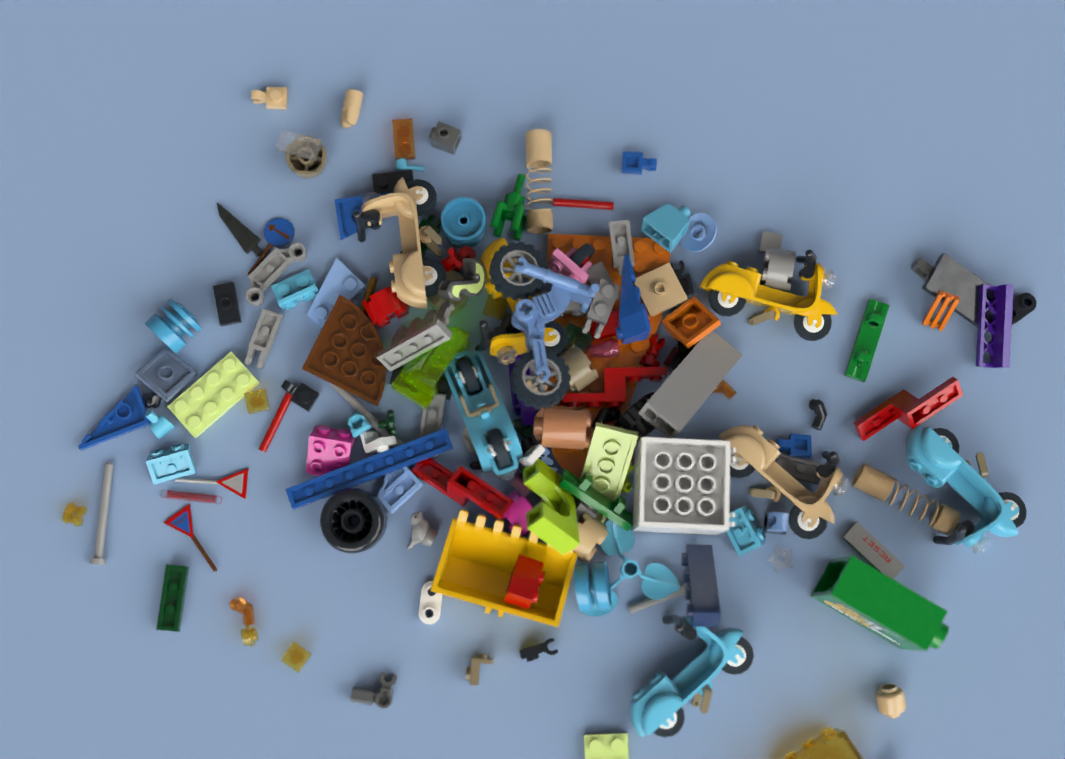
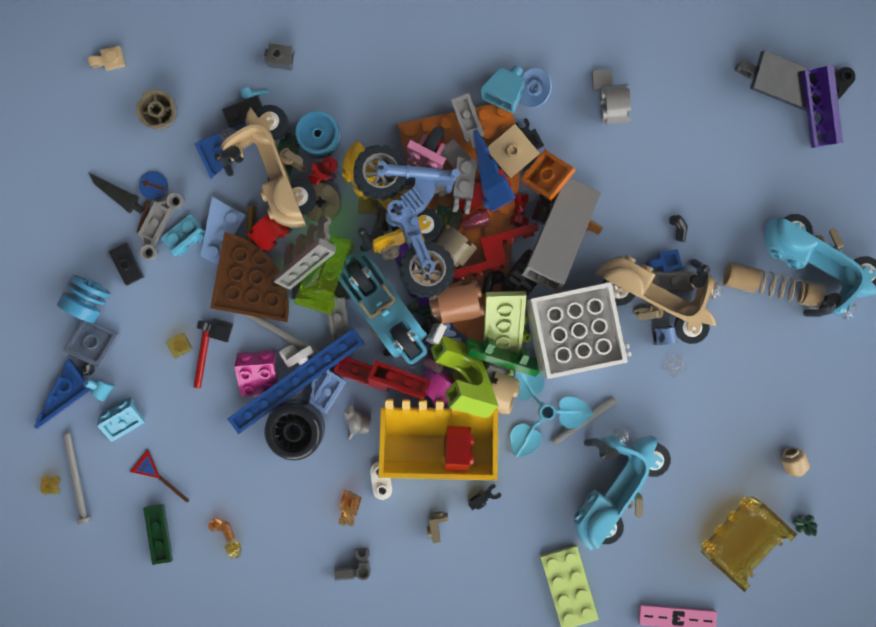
camera: 15 degrees left, 10 degrees up
(191, 498) = (146, 443): piece -> none
(213, 394) = (139, 349): yellowish green plate -> none
(236, 483) = (182, 421): piece -> none
(264, 336) = (168, 285): light grey hinge -> none
(296, 657) = (278, 556): clear yellow plate -> none
(298, 145) = (145, 101): clear tile -> none
(351, 108) = (185, 50): tan hinge -> none
(358, 424) = (275, 343): medium azure piece -> none
(388, 423) = (300, 336): dark green plant -> none
(388, 621) = (349, 506): none -> clear orange plate
(403, 139) = (241, 68): clear orange plate -> none
(470, 286) = (339, 196): dark grey animal -> none
(510, 210) = (358, 111): green plant -> none
(539, 157) = (369, 52): tan piece -> none
(583, 204) = (422, 87): red bar -> none
(592, 586) = (518, 433): dark azure wheel -> none
(634, 163) = (460, 36): blue plate -> none
(701, 585) = (613, 410): dark blue brick -> none
(734, 287) = (578, 131): yellow piece -> none
(746, 534) = (642, 351): medium azure bracket -> none
(866, 340) = (708, 148): green hinge -> none
(872, 551) = (753, 337): light grey tile -> none
(881, 605) = (773, 388): green brick -> none
(908, 408) = (760, 204): red bracket -> none
(934, 323) = (759, 115): orange tile -> none

